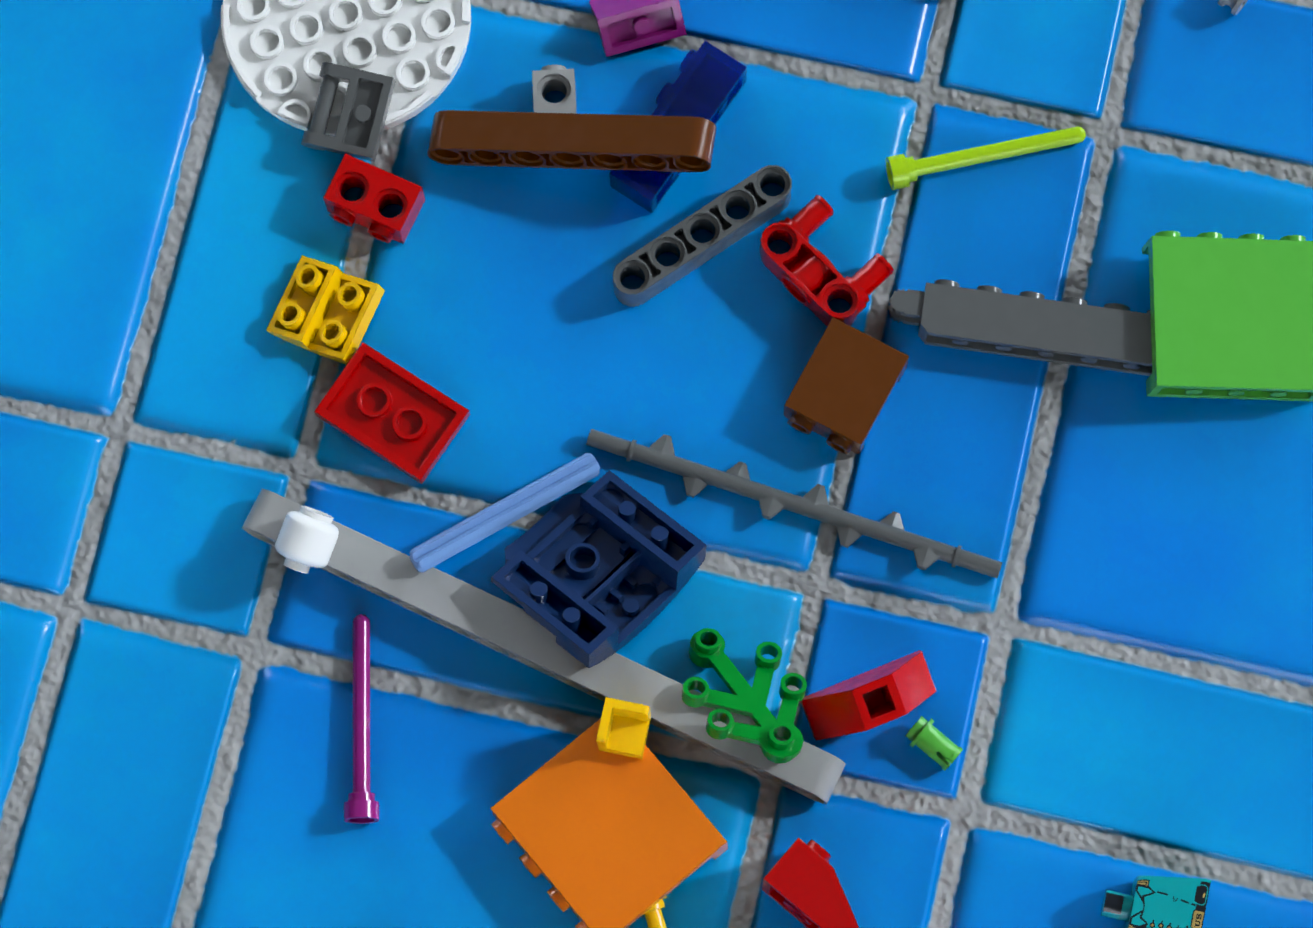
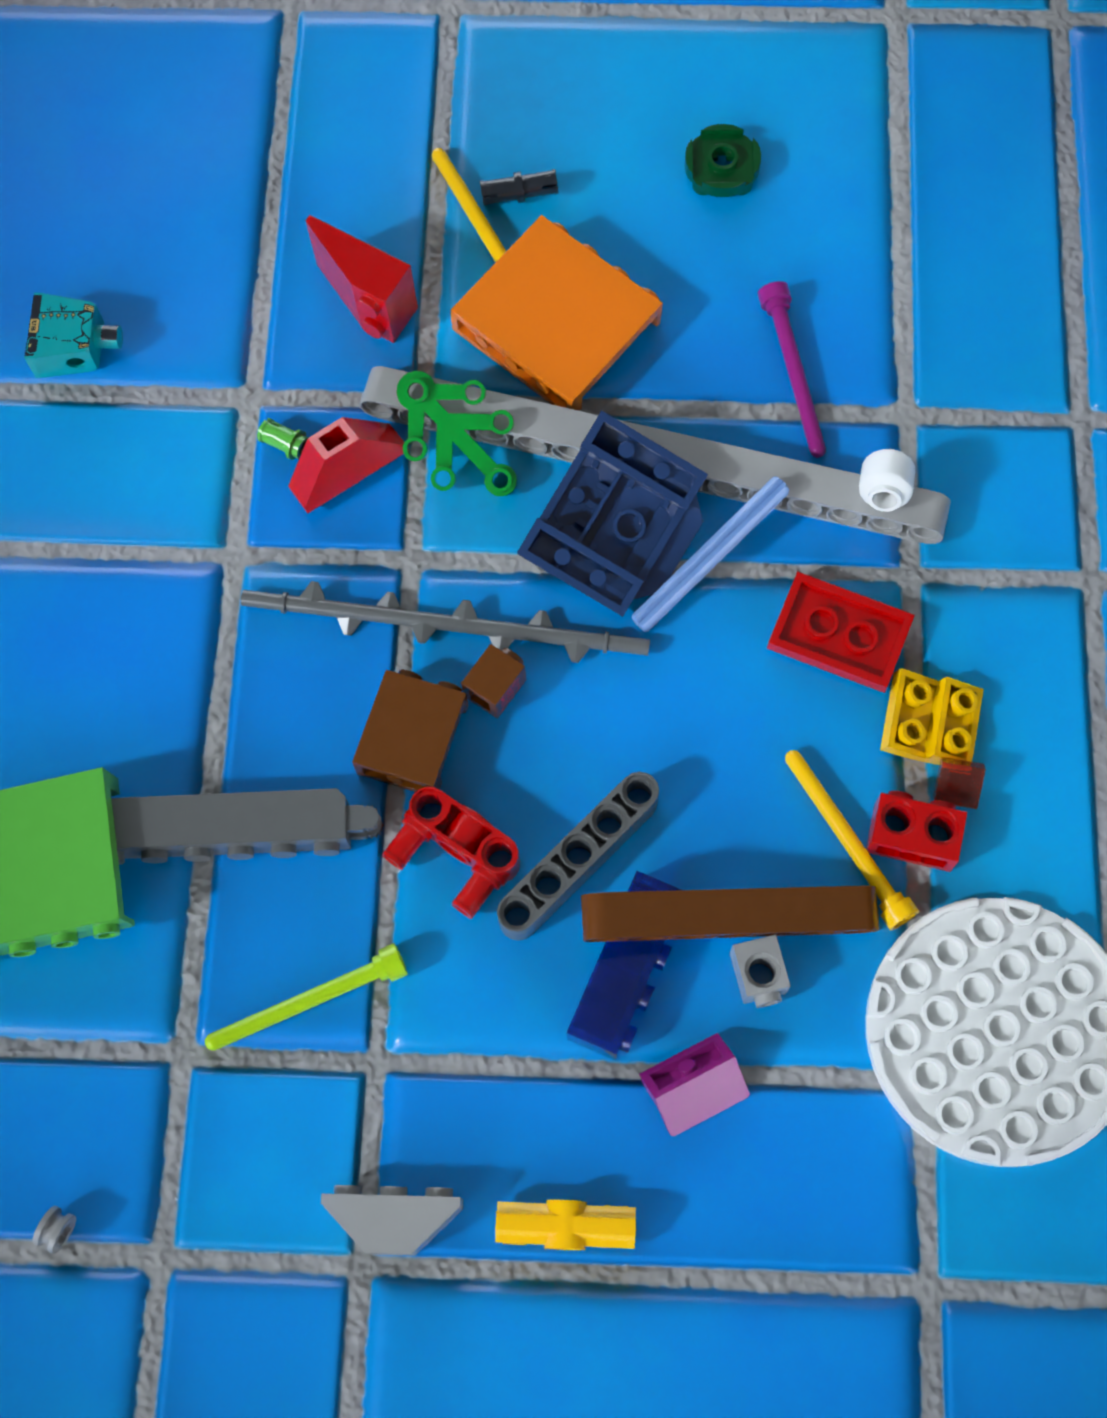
camera: 170 degrees right, 5 degrees down
(319, 239) = (959, 782): none -> clear red tile
(361, 114) = (953, 912): dark grey plate -> none
(412, 134) = (895, 907): none -> yellow piece
(623, 728) = (559, 376): yellow panel -> none
(752, 425) = (494, 680): none -> reddish brown brick

